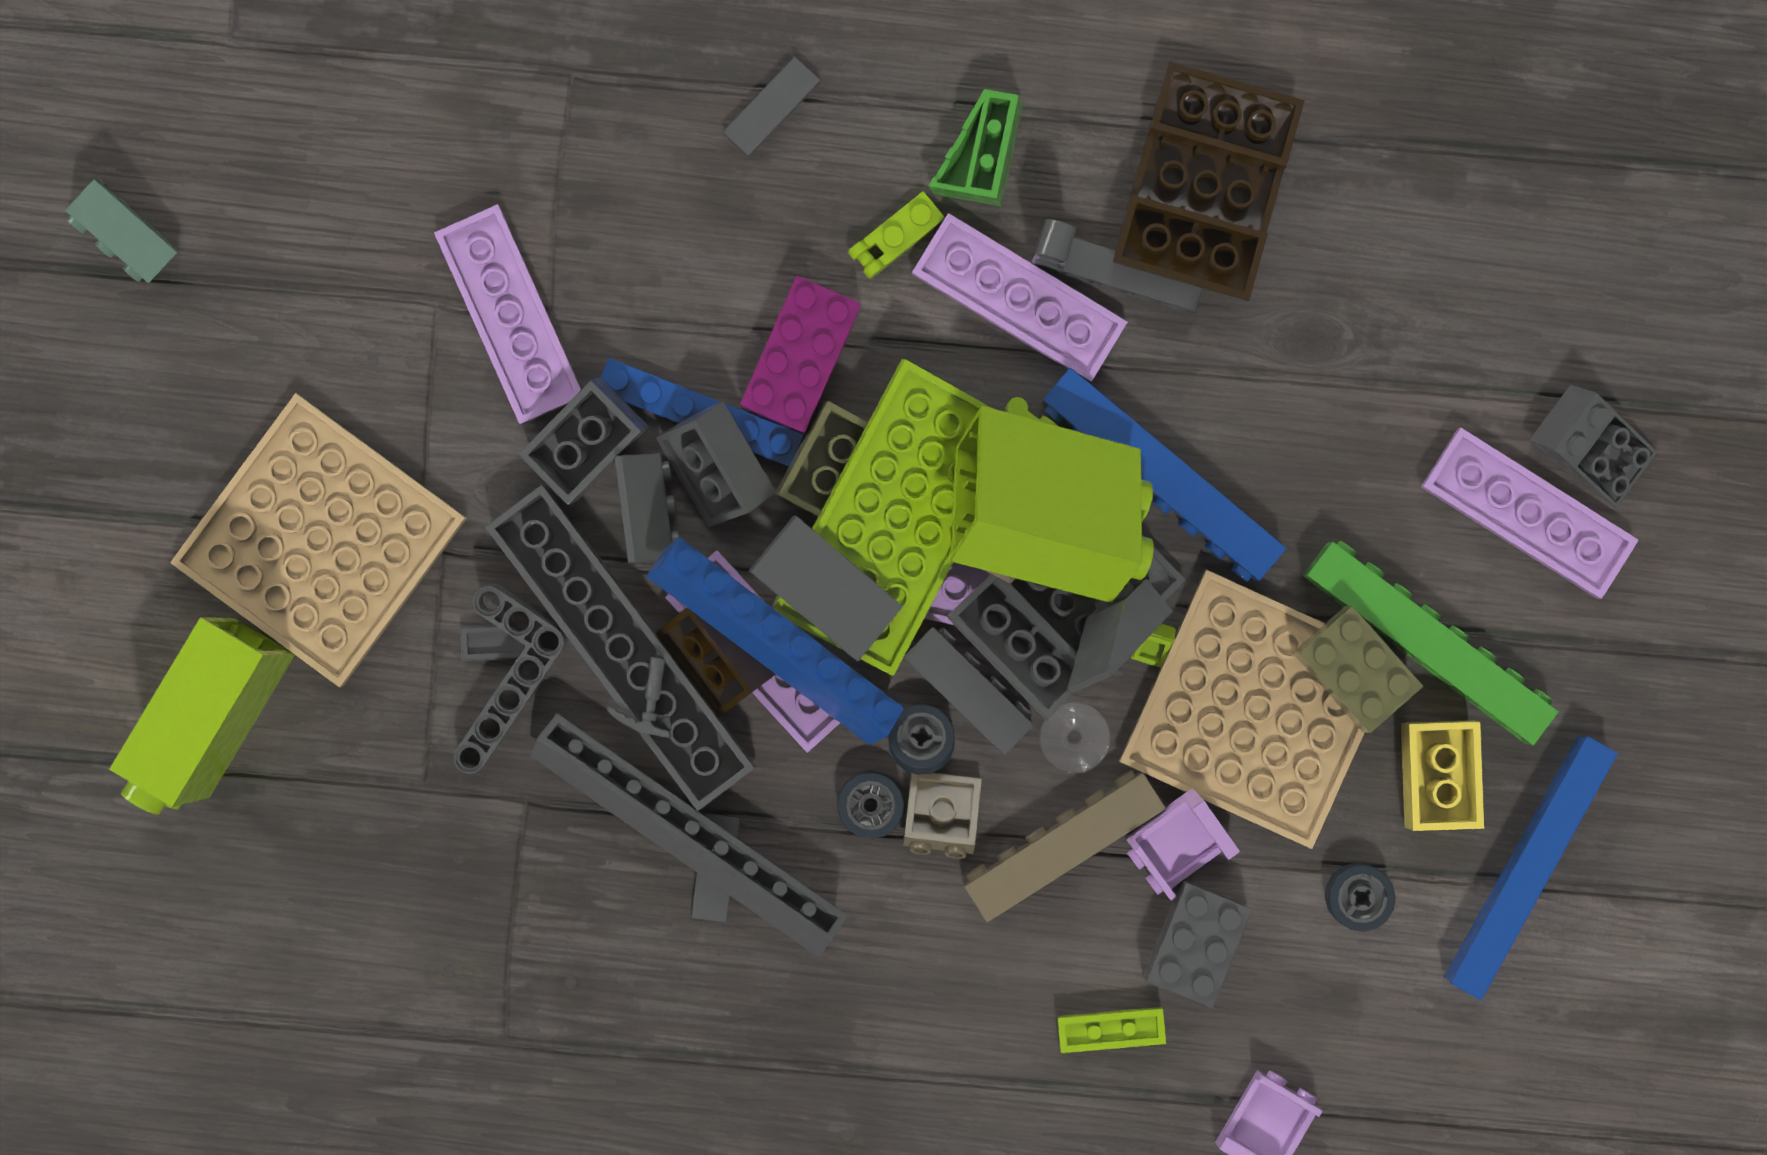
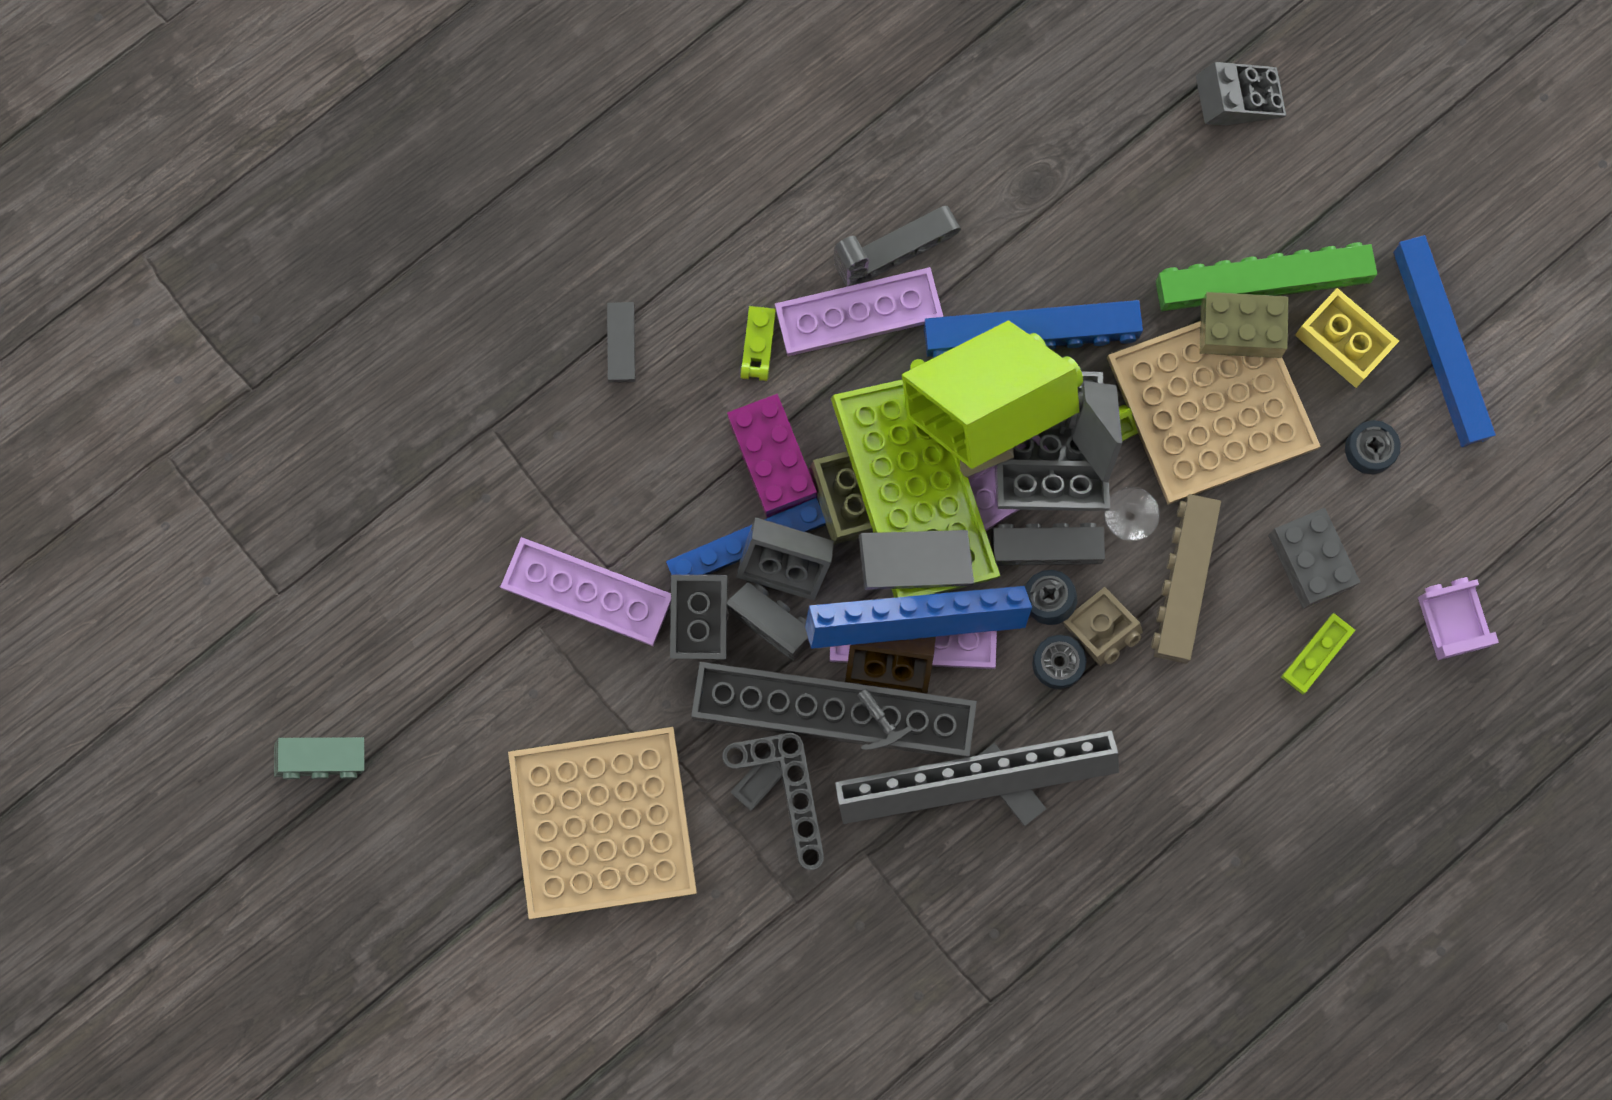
camera: 35 degrees left, 10 degrees down
(200, 714) = (634, 980): lime brick -> none
(982, 155) = (761, 254): bright green wedge -> none
(1178, 842) = (1247, 512): lavender panel -> none
(1208, 181) = (896, 153): dark brown slope -> none
(1529, 513) = (1245, 160): lavender plate -> none

